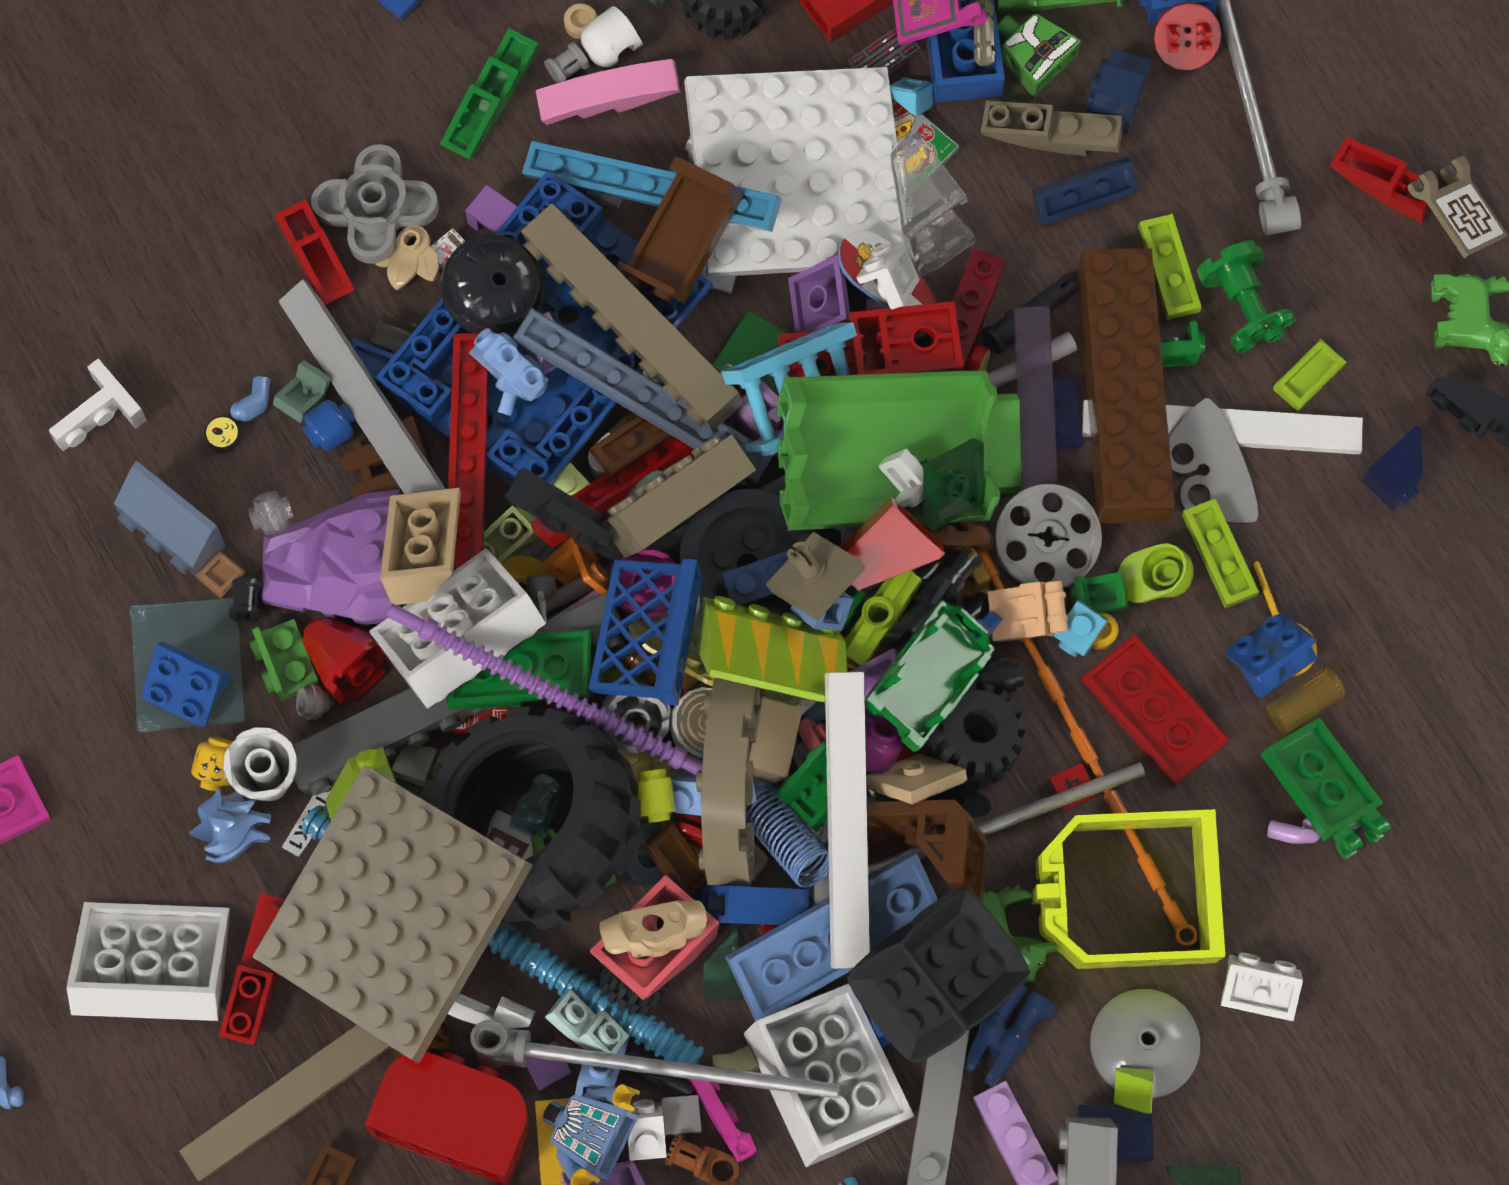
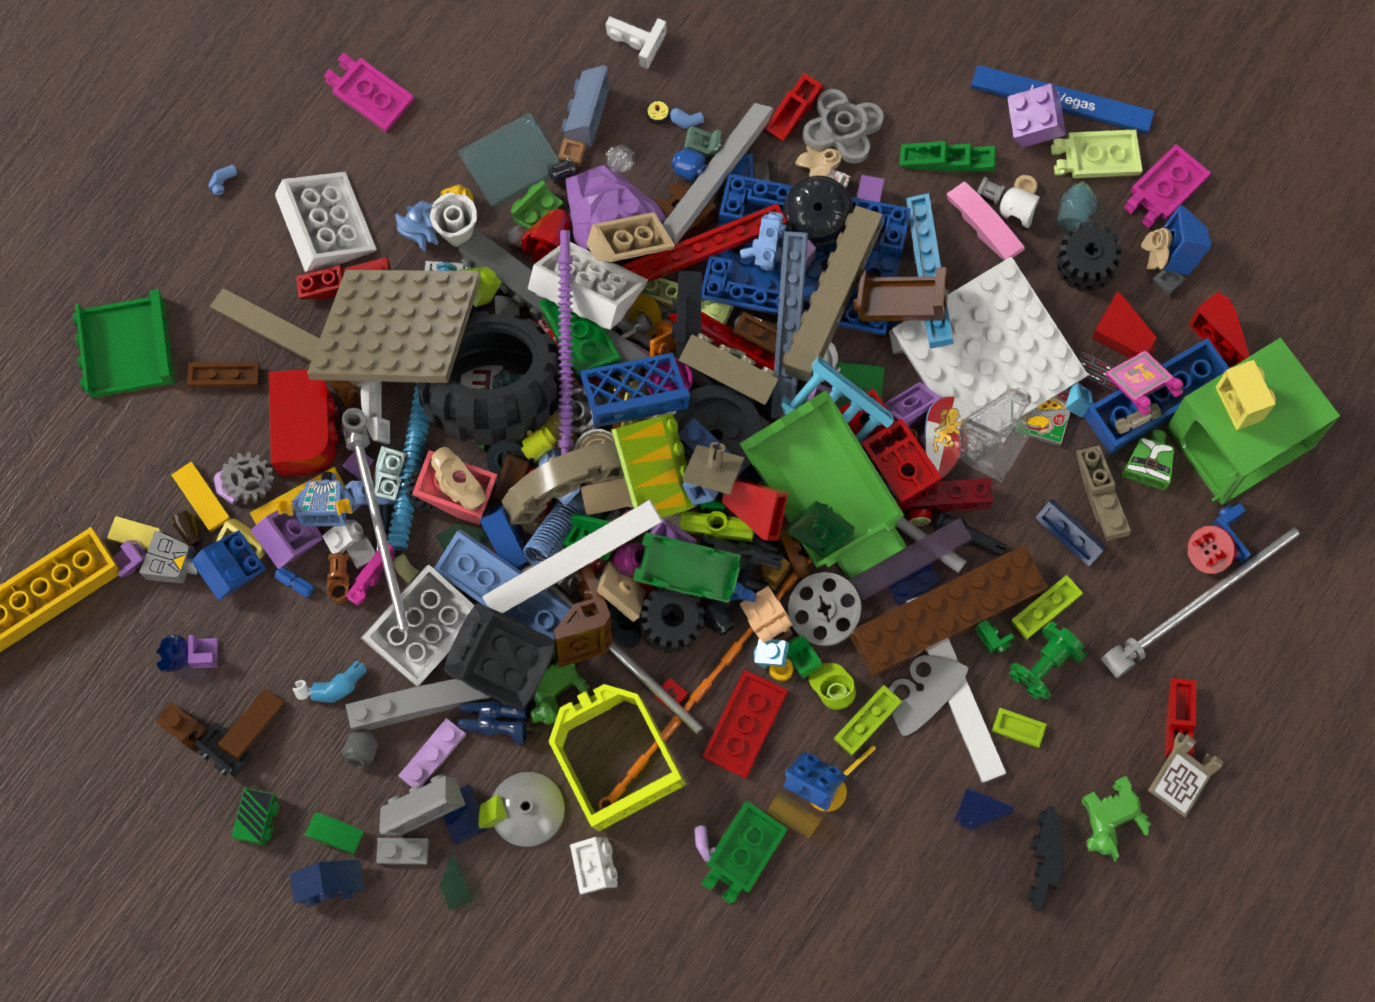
camera: 70 degrees right, 0 degrees up
(183, 684) = (494, 160): blue bracket -> none
(894, 273) = (940, 433): white bracket -> none
(907, 476) = (815, 492): white bracket -> none
(1118, 86) = (1151, 522): dark blue brick -> none

